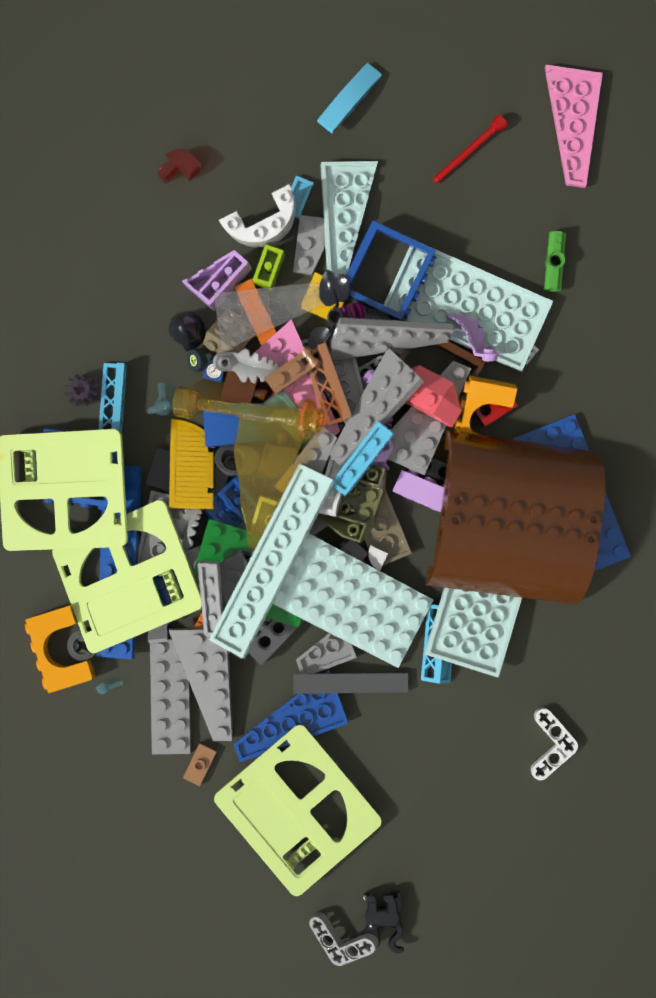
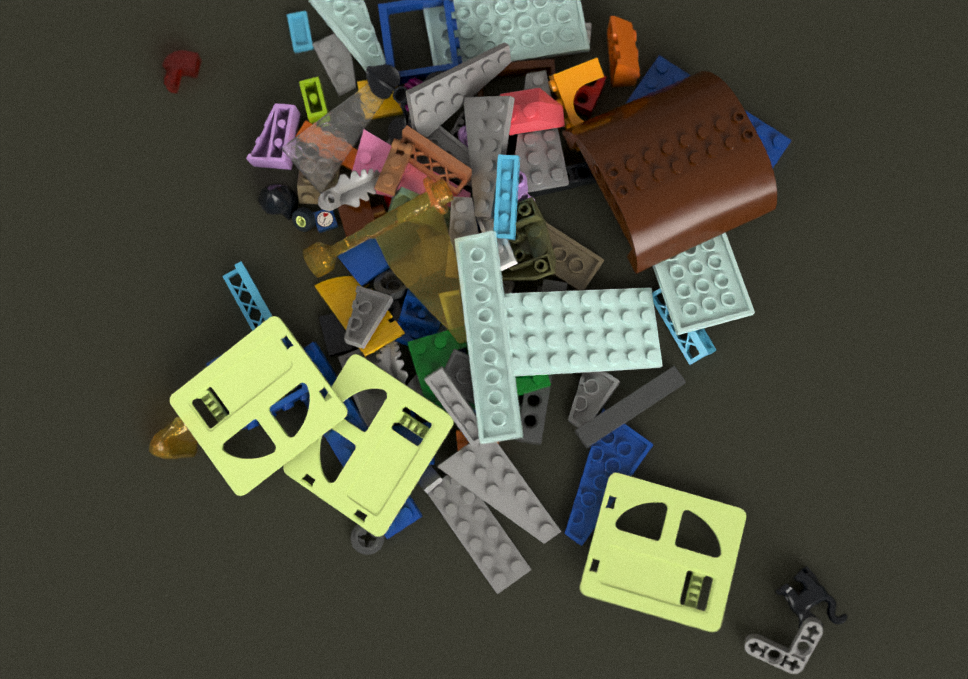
camera: 30 degrees left, 10 degrees down
(54, 674) = (320, 546): light orange arch -> none
(84, 396) = (210, 310): clear purple gear -> none
(102, 688) = (411, 565): clear light blue hand -> none
(161, 405) = (298, 278): clear light blue piece -> none
(192, 475) = (366, 315): none -> light grey wing
(199, 764) = (546, 574): medium nougat plate -> none
(268, 230) = (293, 68): white cylinder -> none
(377, 557) = (576, 281): white tile -> none
(419, 490) = (576, 200): lavender wedge -> none
(475, 337) = (531, 43): lavender plant -> none
(545, 393) = (622, 52): none -> orange wedge
(564, 754) = (850, 343): white beam -> none

